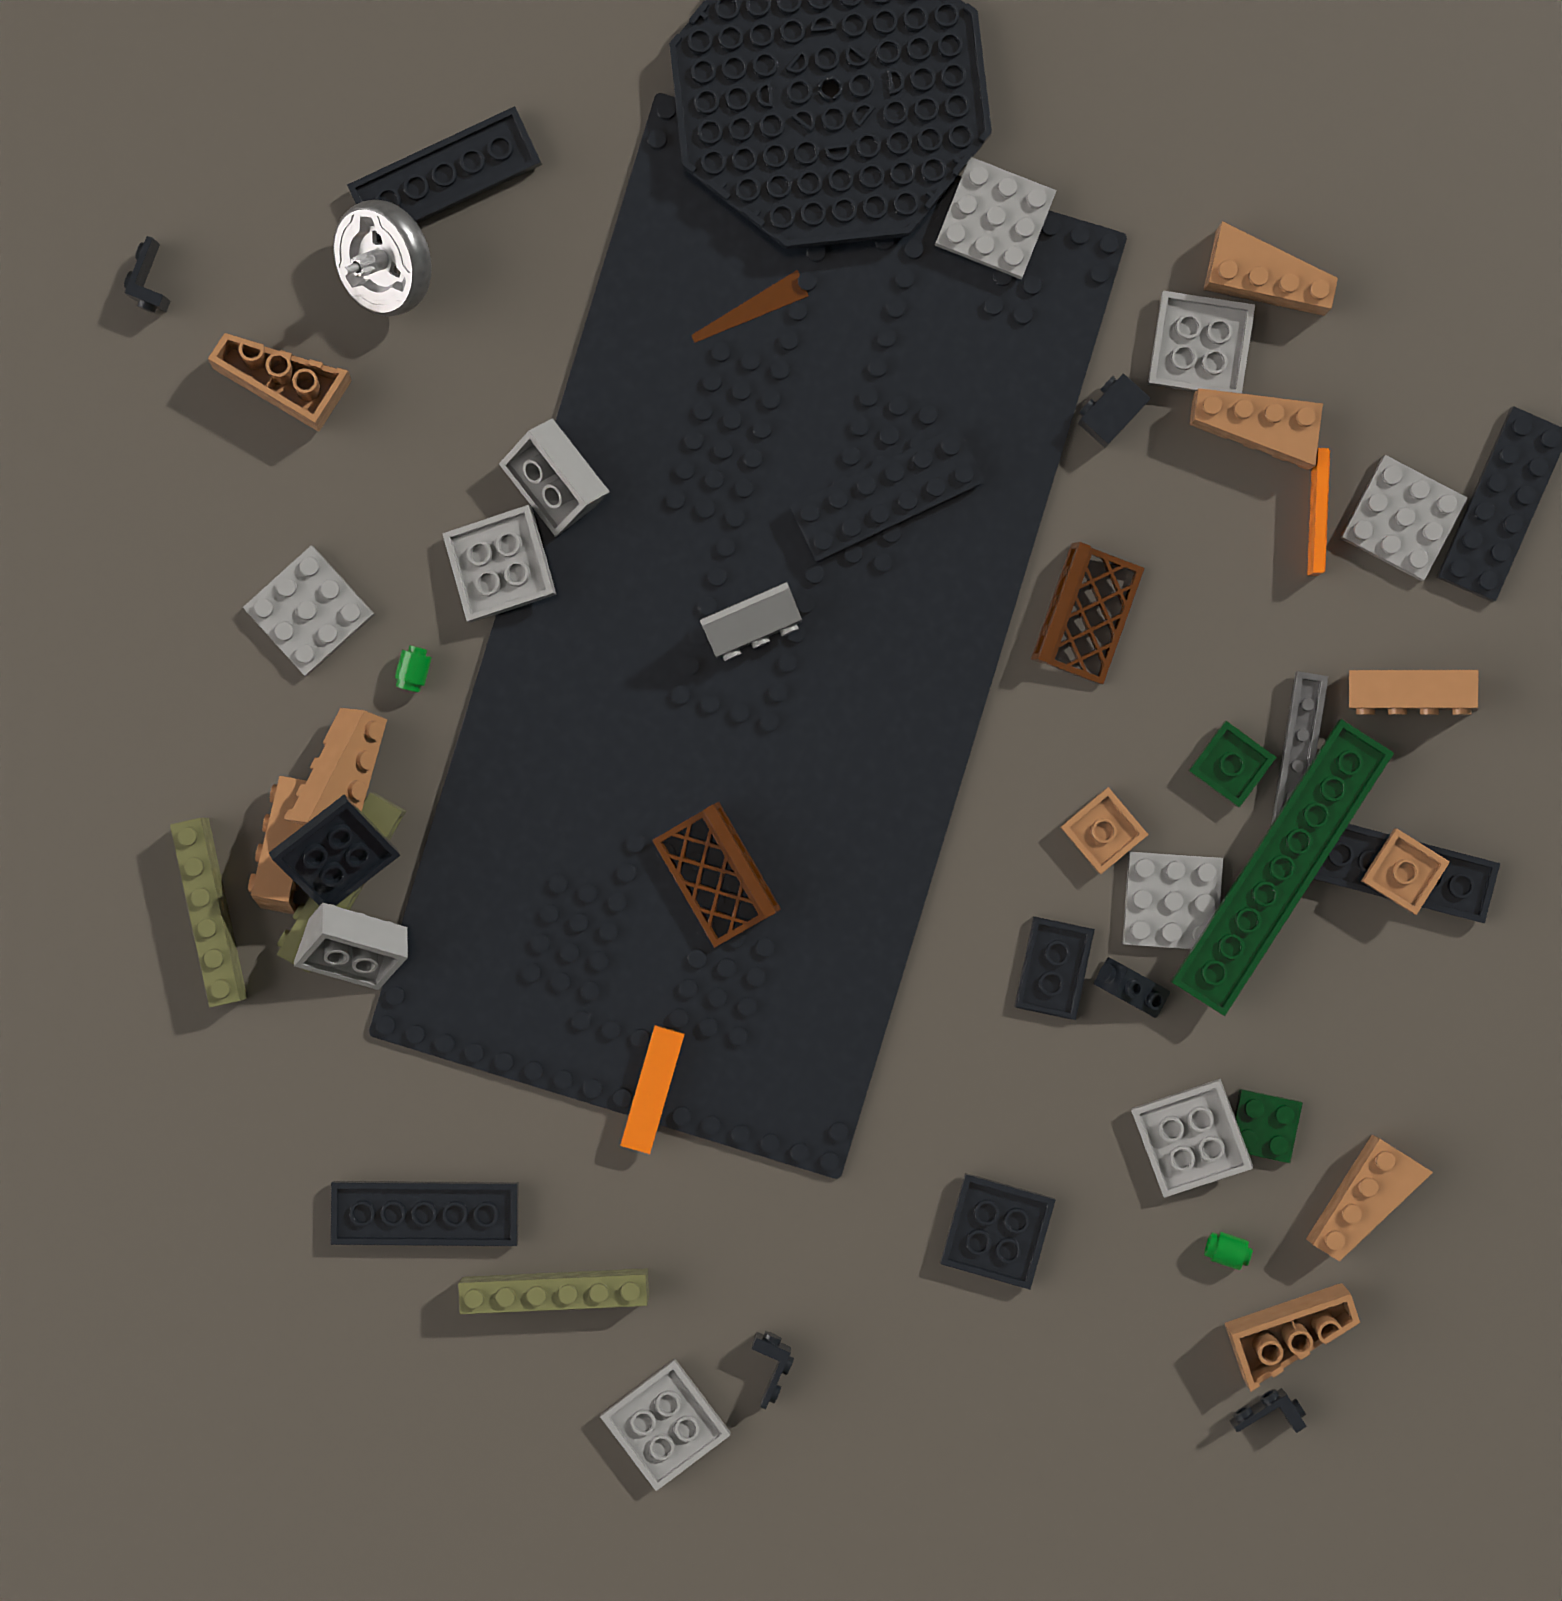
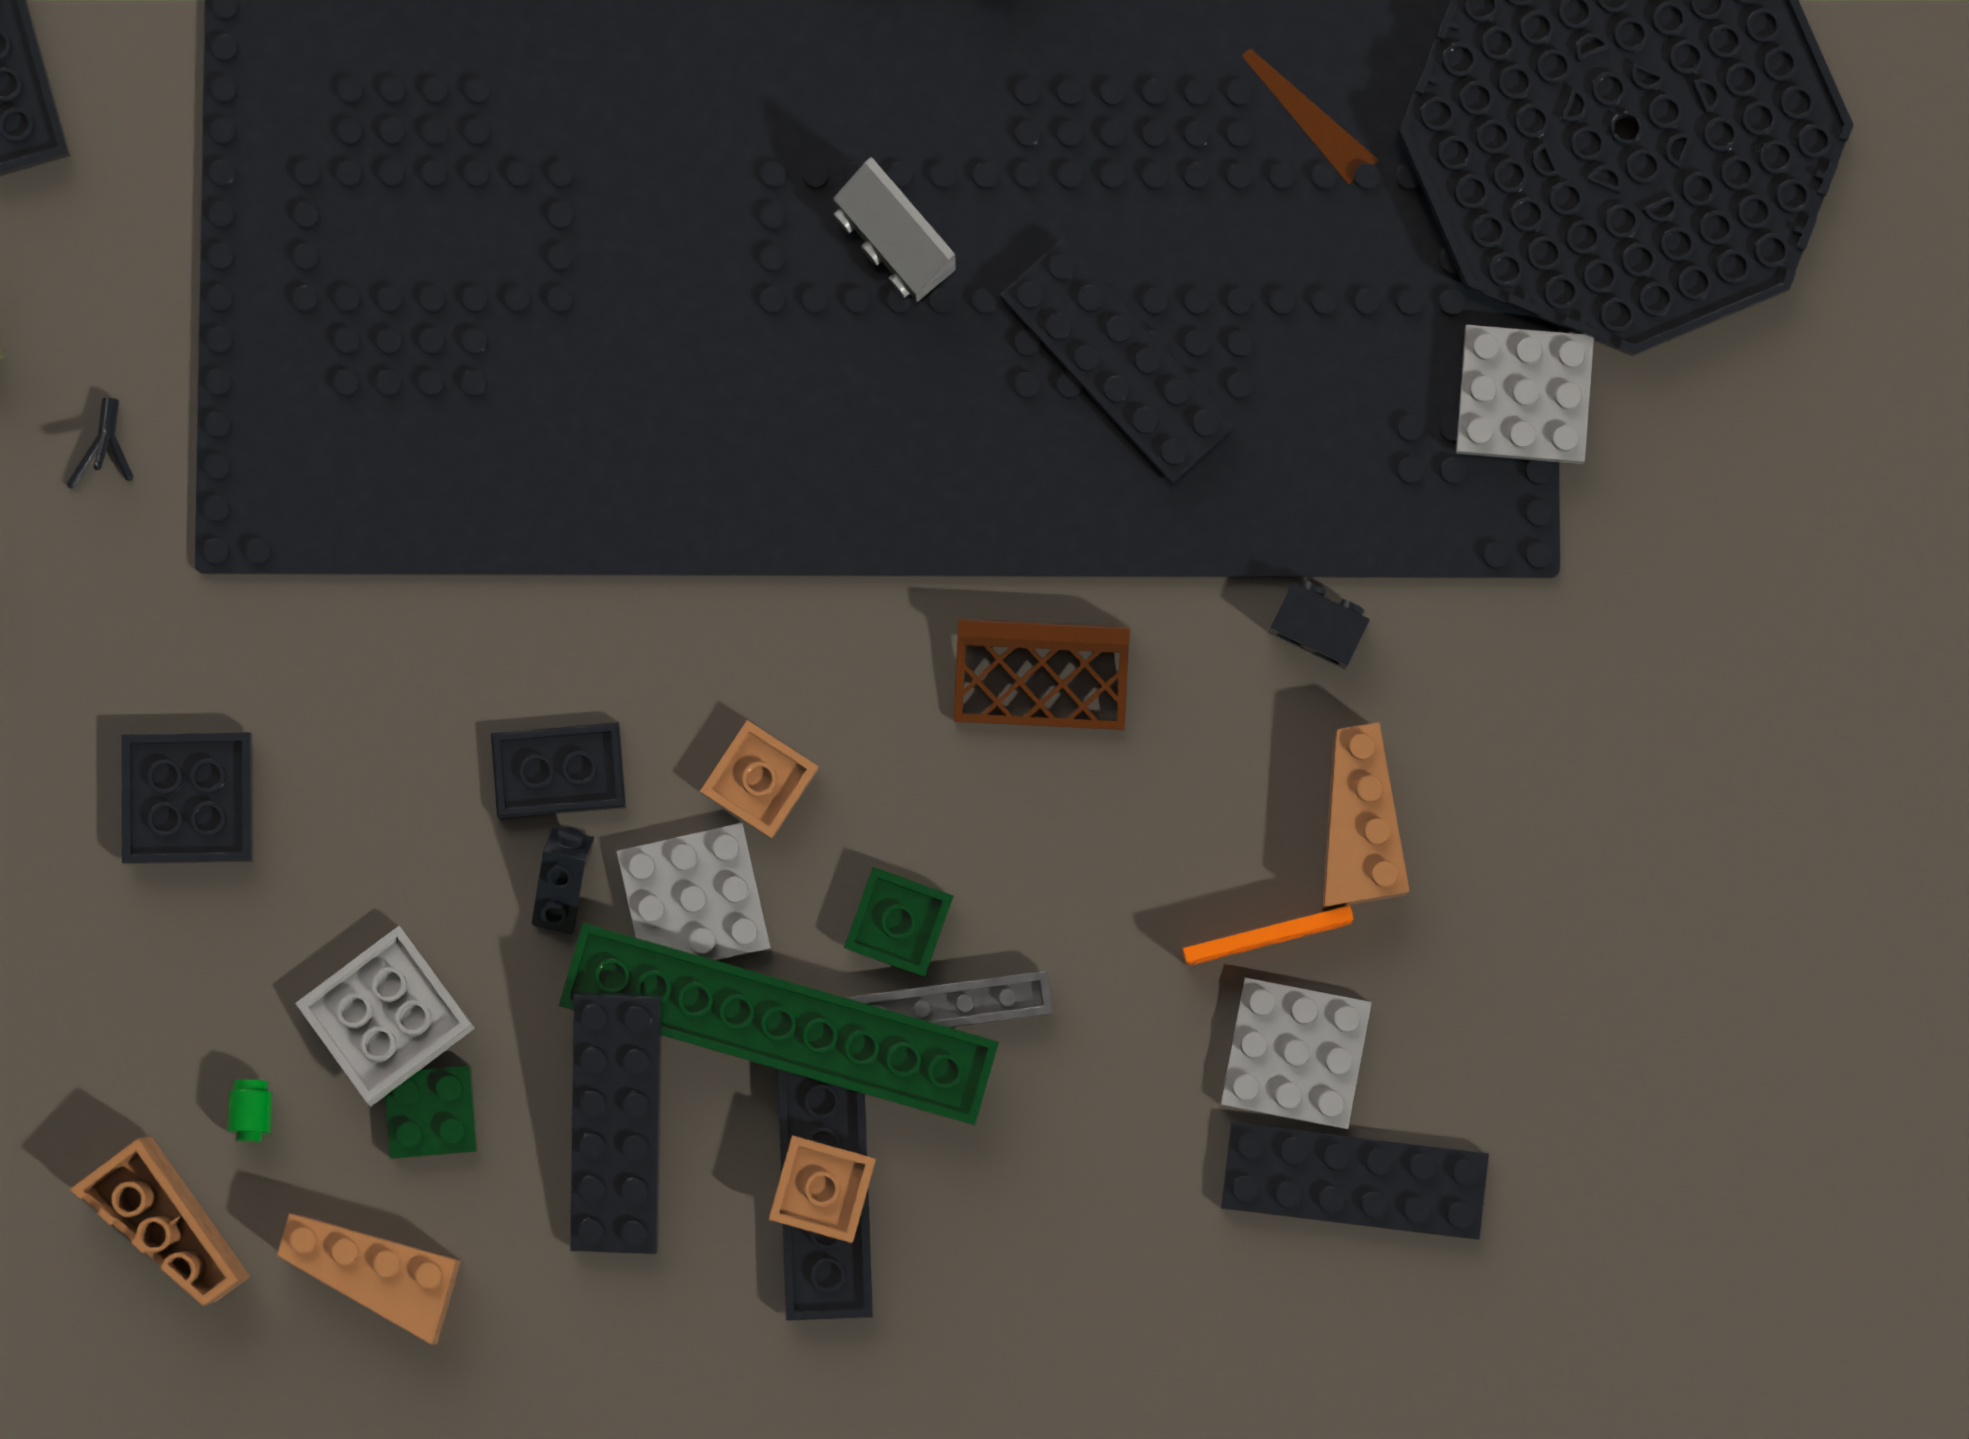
camera: 75 degrees right, 5 degrees down
(652, 1089) = (243, 290): orange tile -> none
(726, 1215) = (105, 435): none -> black plant
(740, 862) = (582, 304): reddish brown fence -> none
(1201, 343) = (1443, 714): light grey plate -> none
(1266, 274) = (1560, 766): medium nougat wedge -> none
(1270, 1401) = (60, 1257): black bracket -> none
(1315, 1000) = (616, 1122): none -> black plate
(1413, 690) = (1068, 1133): medium nougat wedge -> none

